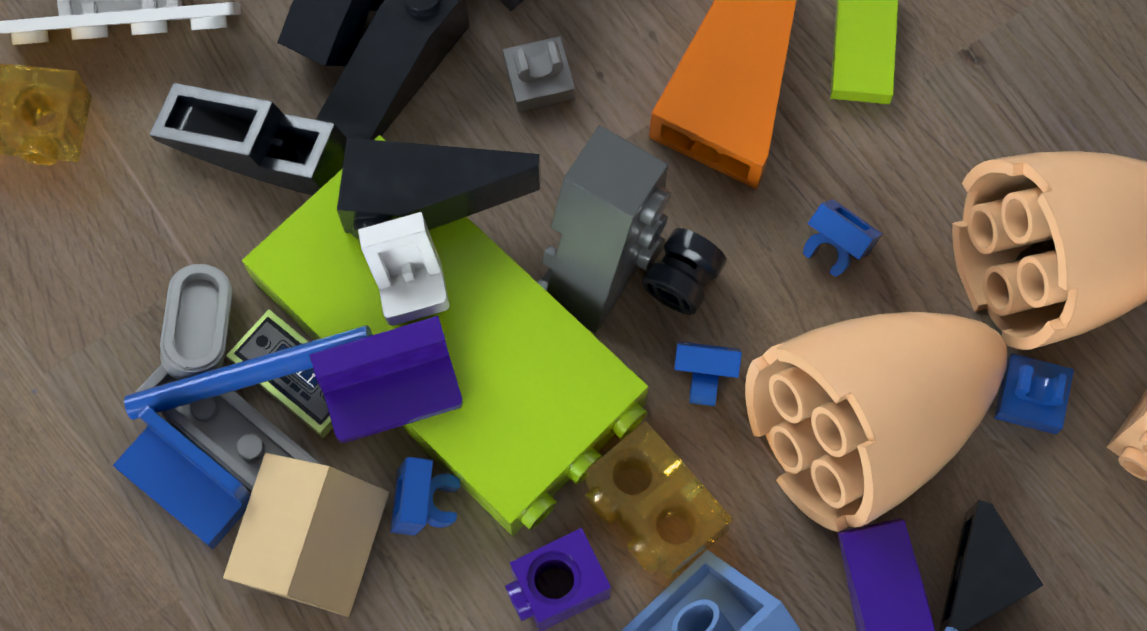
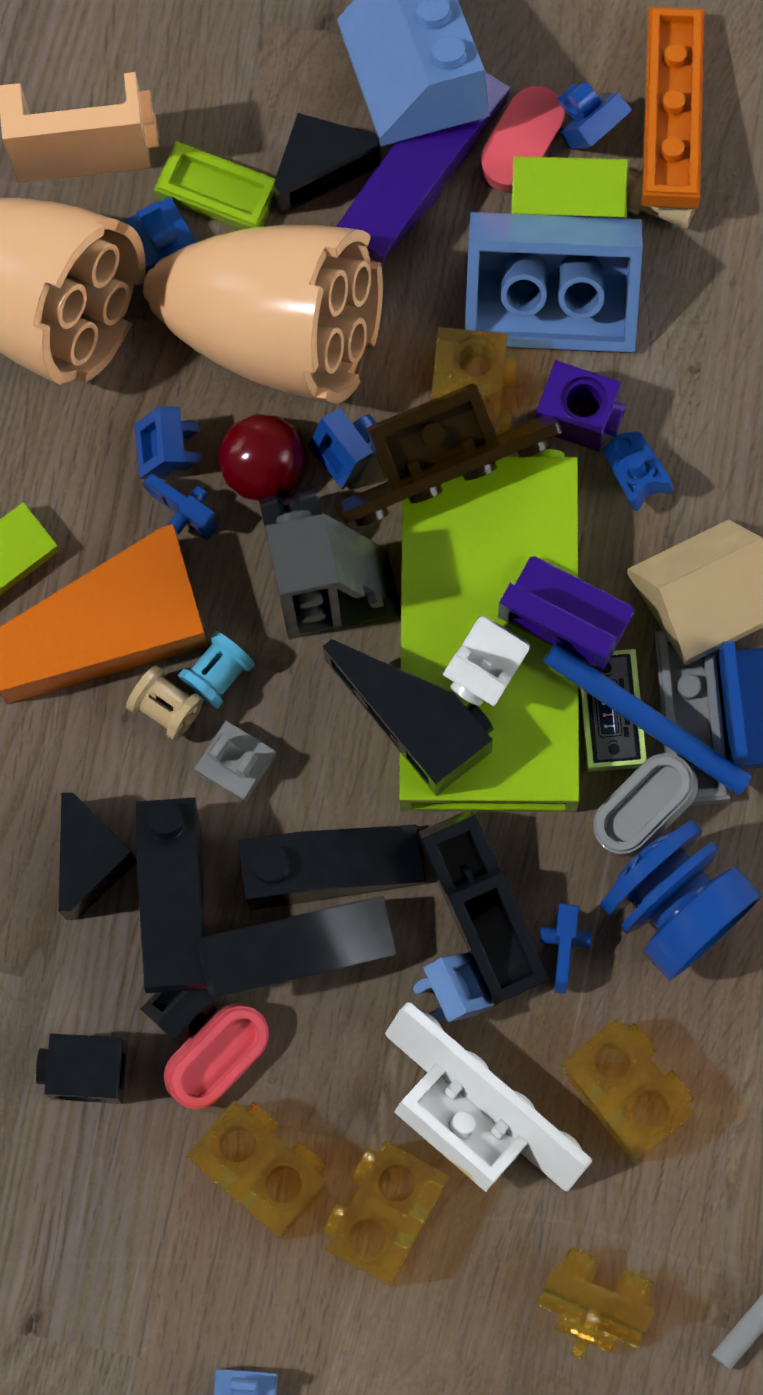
camera: 130 degrees left, 5 degrees up
(88, 261) = (680, 899): none -> blue wheel
(167, 174) = (565, 936): none -> blue piece
(211, 61) = (456, 987): none -> medium blue tile
(414, 497) = (616, 545): blue tile -> none
(463, 579) = (636, 468): none -> blue piece
(617, 406) = (436, 445): none -> dark brown bracket
(620, 107) = (216, 669): none -> medium azure bush
(631, 57) = (144, 699): none -> tan bush
(760, 302) = (262, 456): none -> dark red hair
(769, 206) = (188, 509): none -> blue piece
(1039, 475) = (216, 188): none -> lime tile

